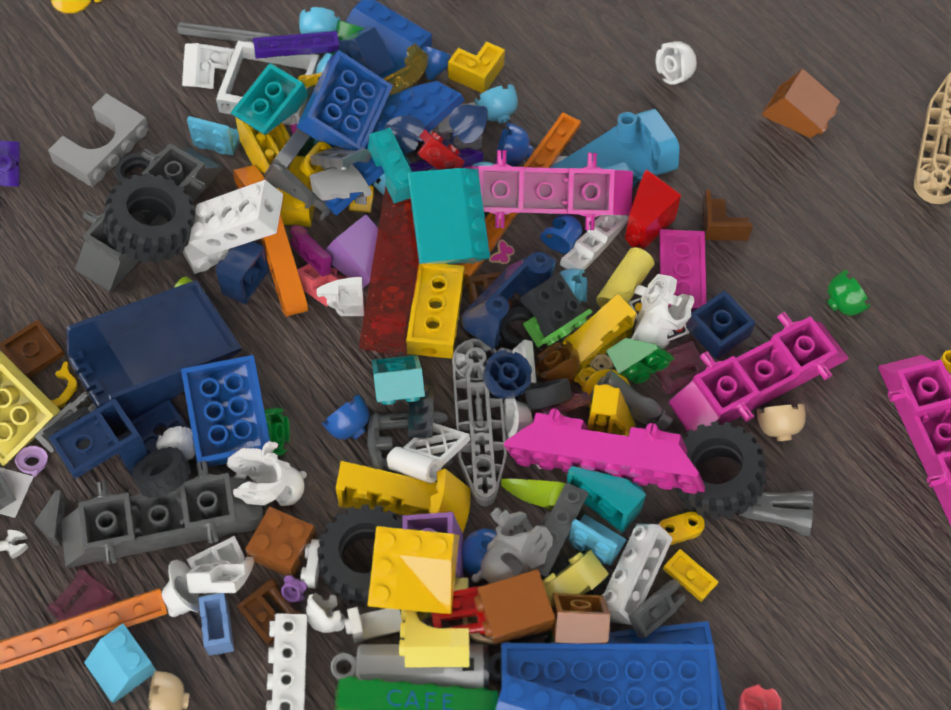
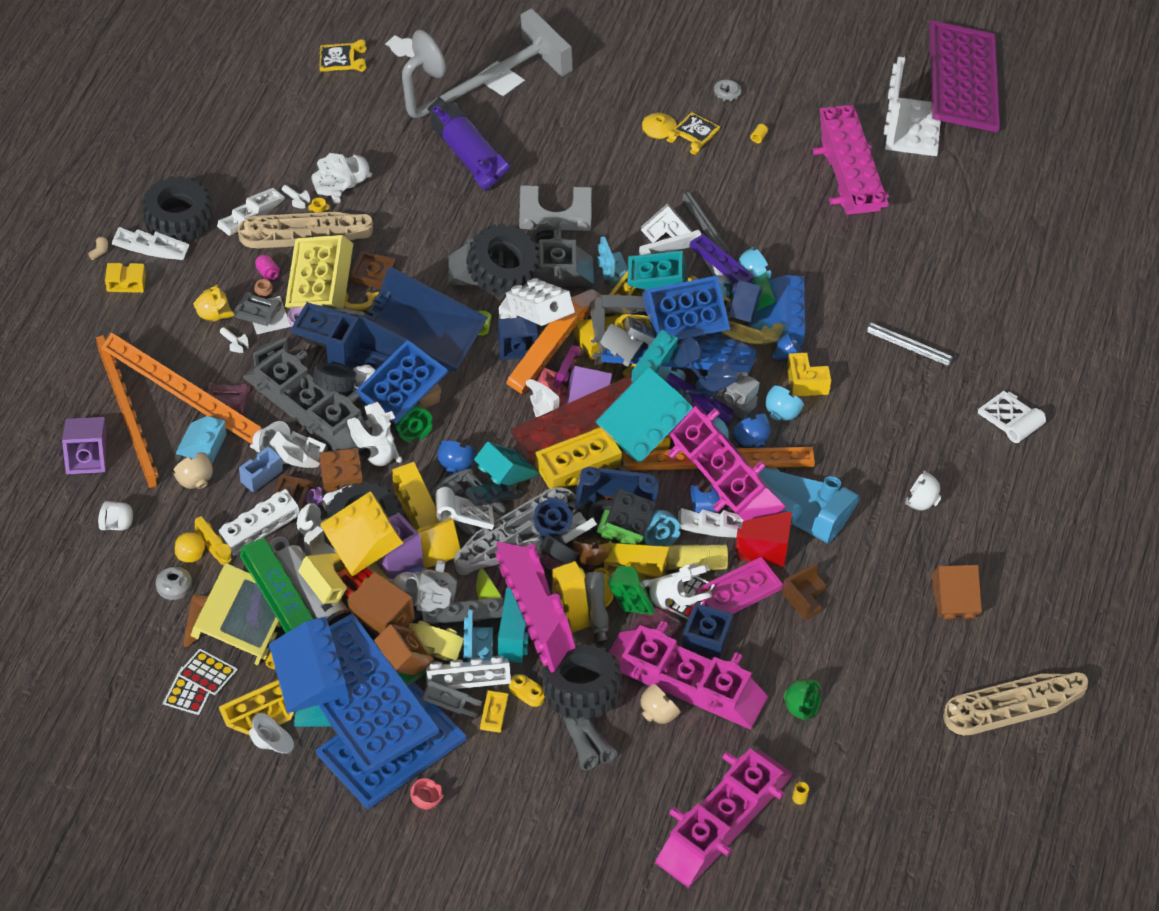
camera: 55 degrees right, 10 degrees down
(438, 153) = (689, 380): red bracket -> none
(503, 253) = (667, 478): dark pink sticker -> none

